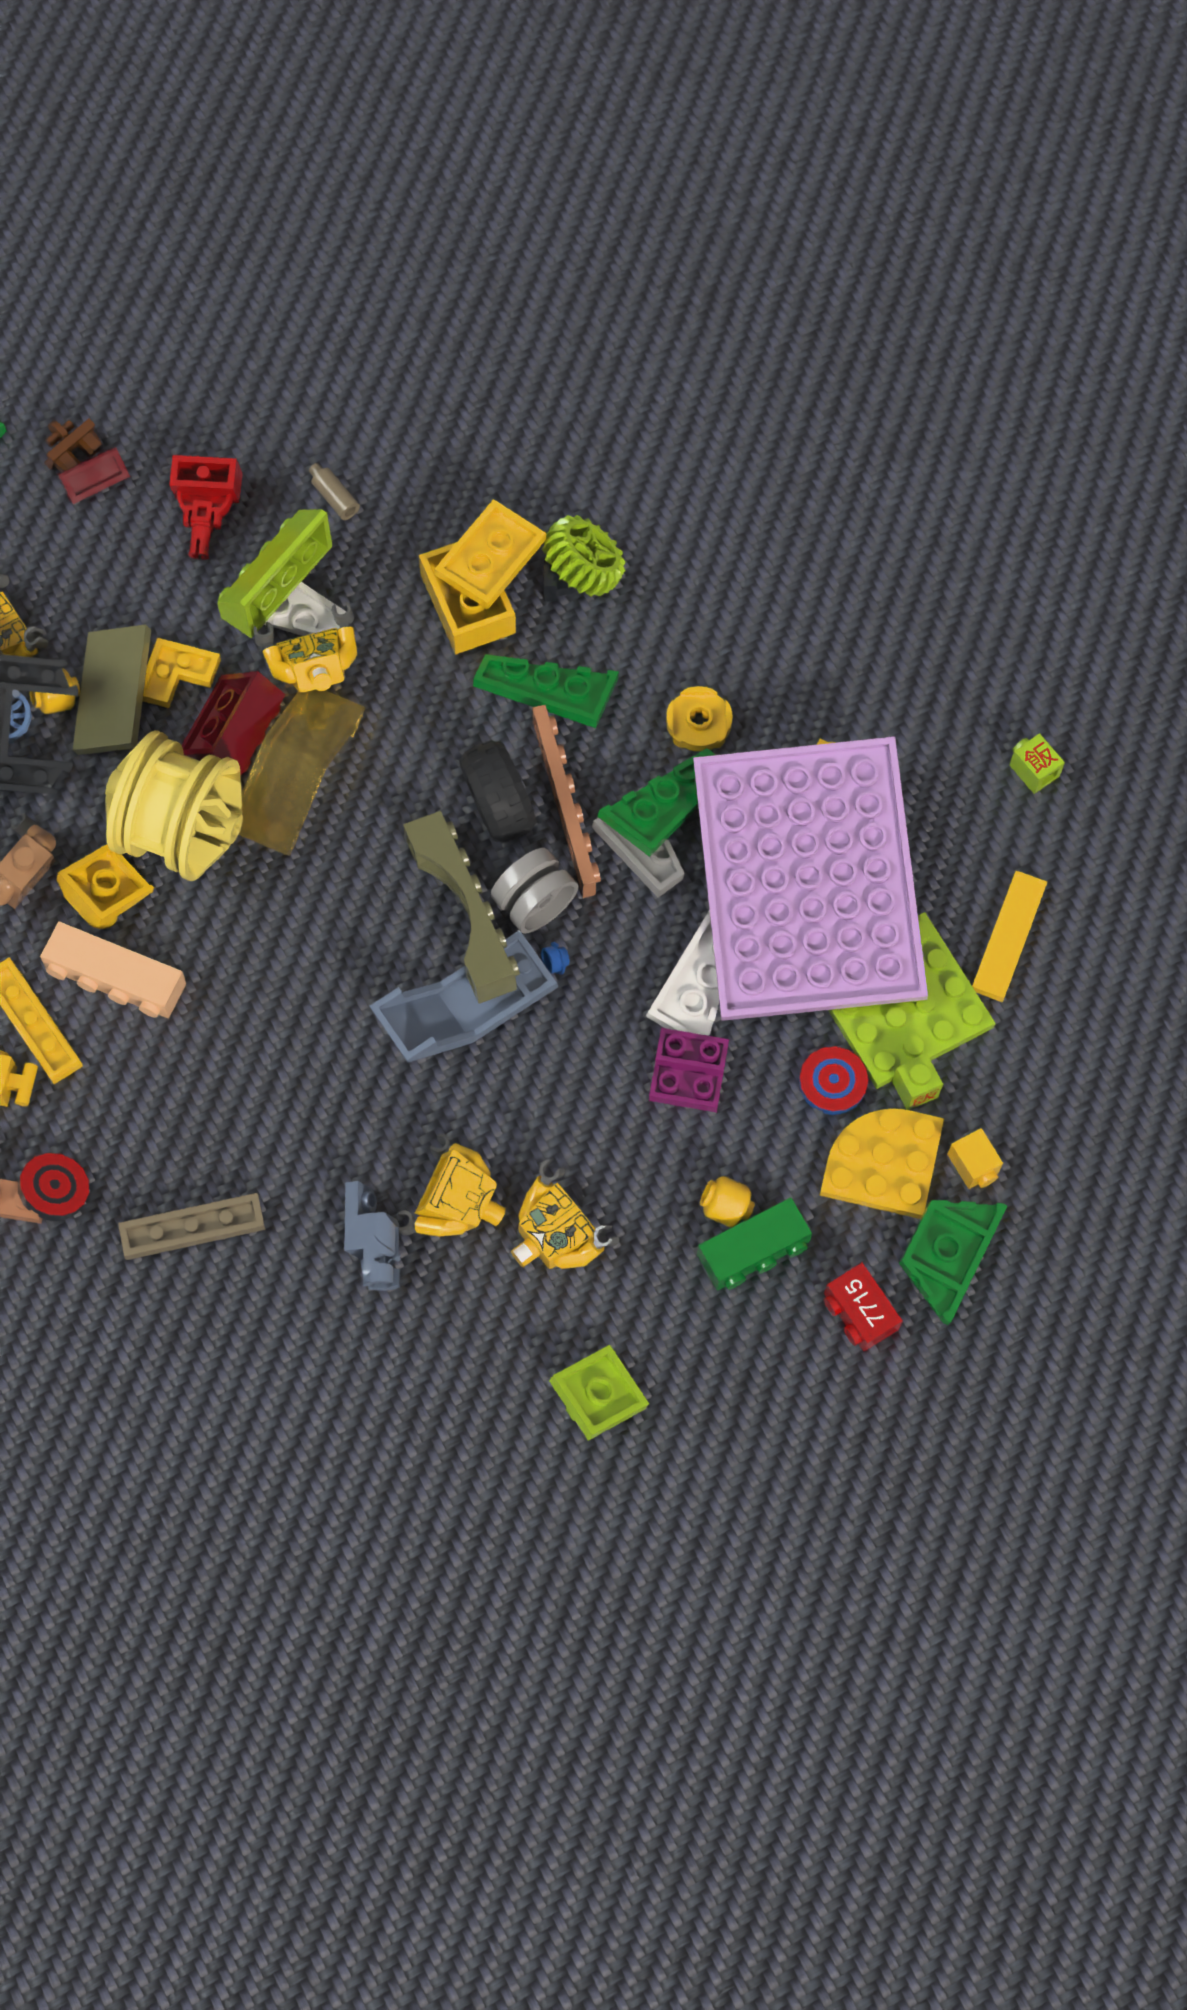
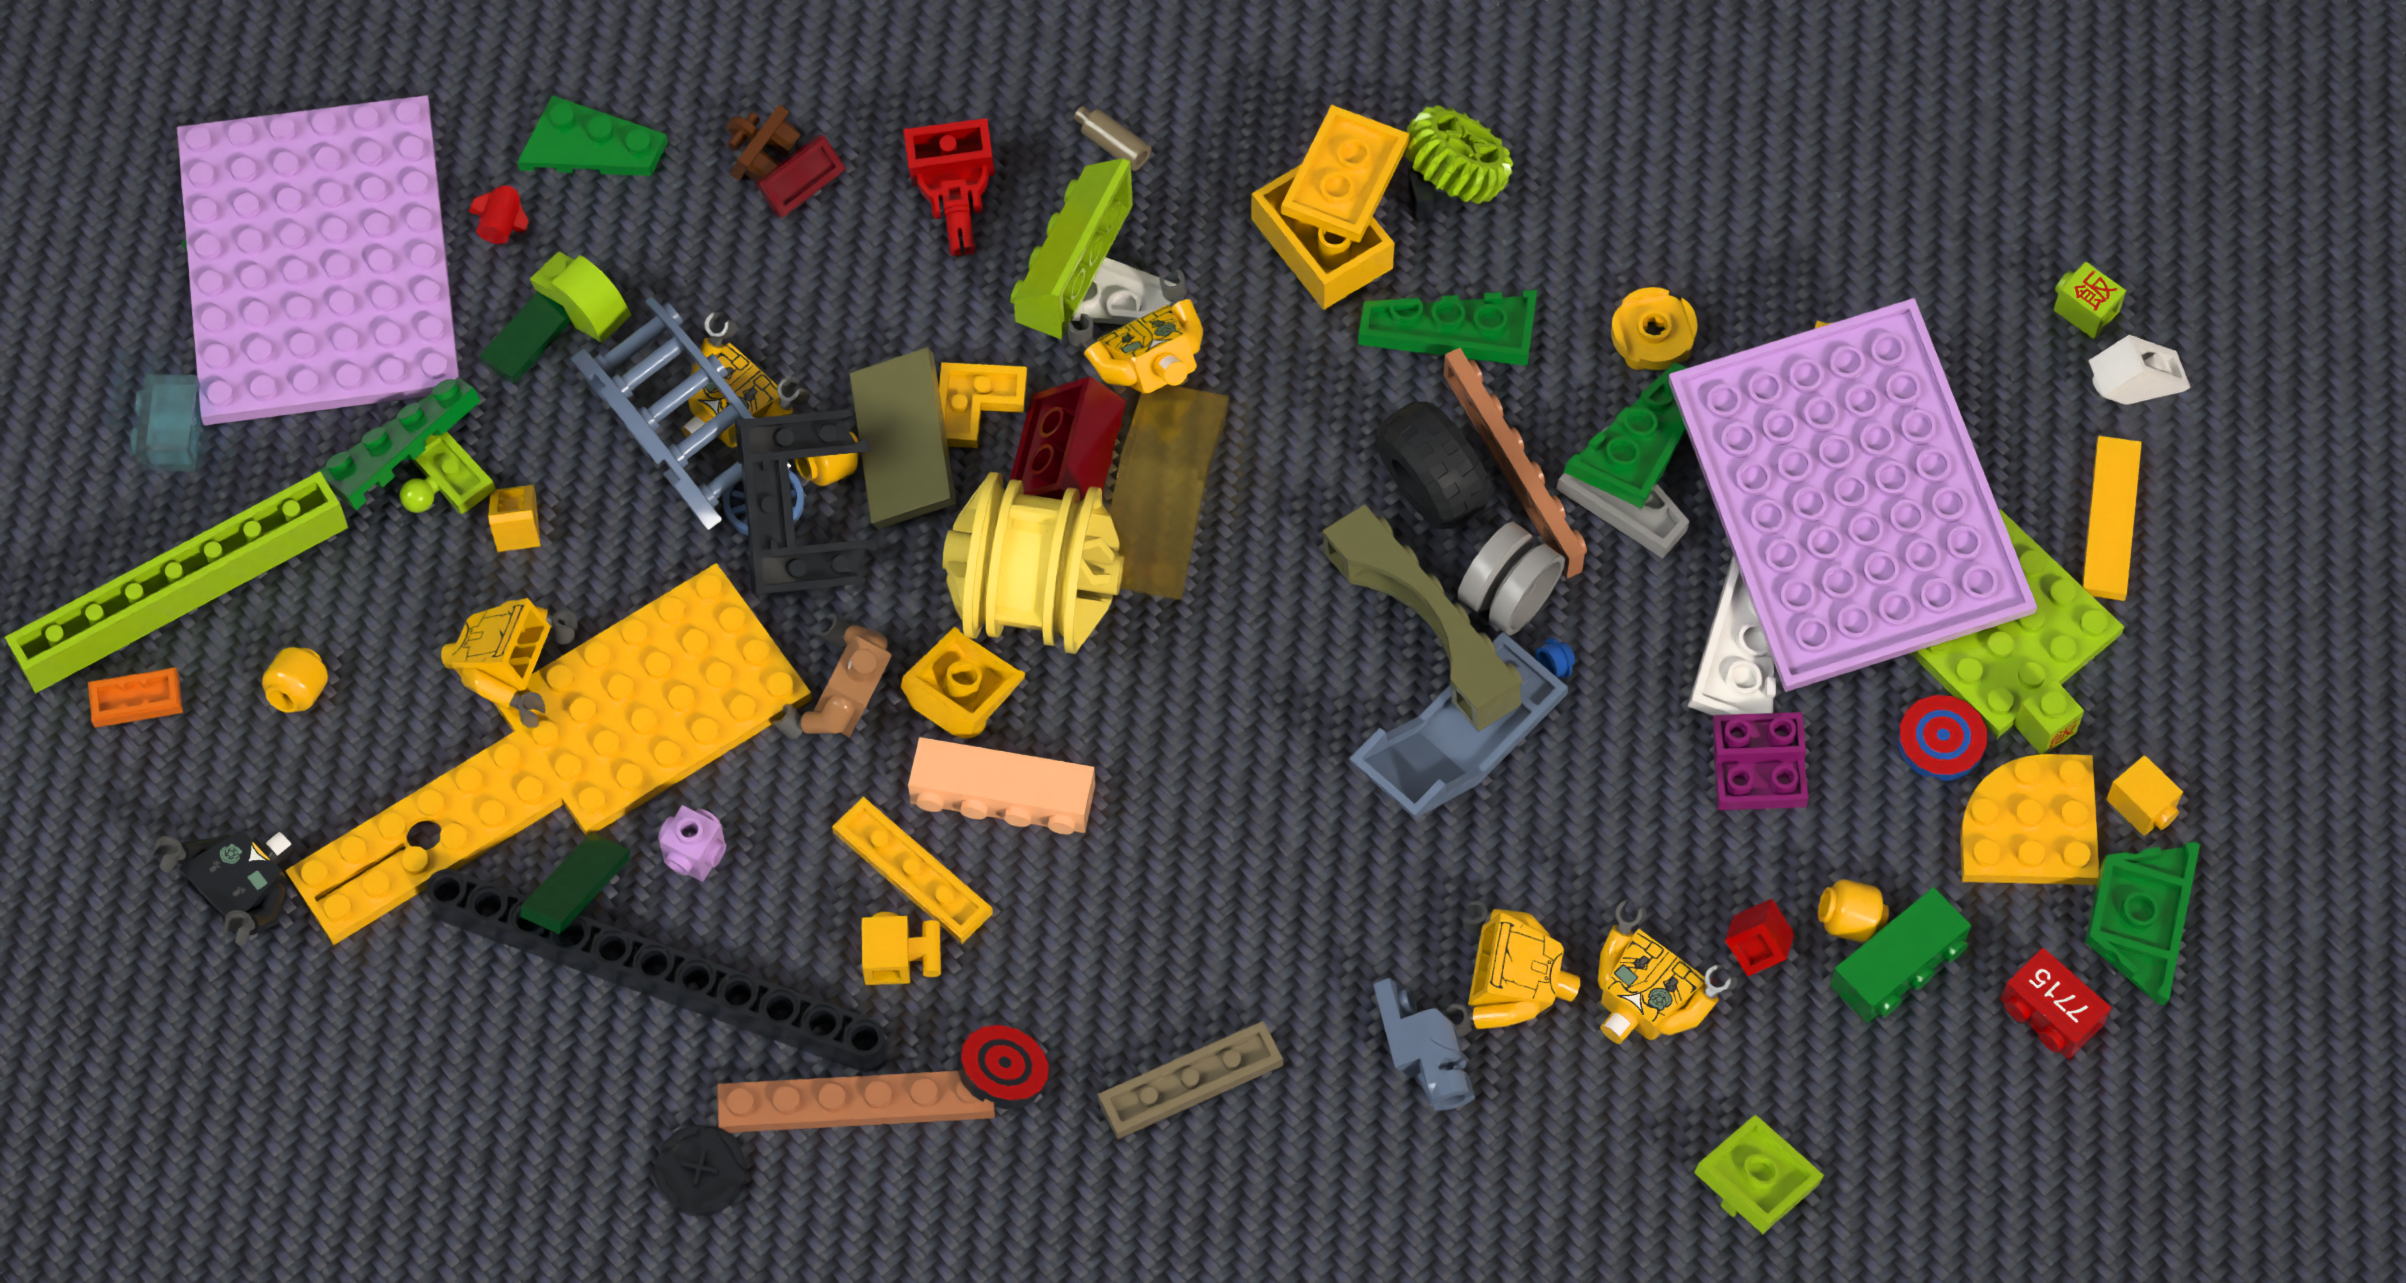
camera: 10 degrees left, 5 degrees down
(651, 1207) = (1759, 937): none -> red panel
(1059, 826) = (2137, 371): none -> white slope

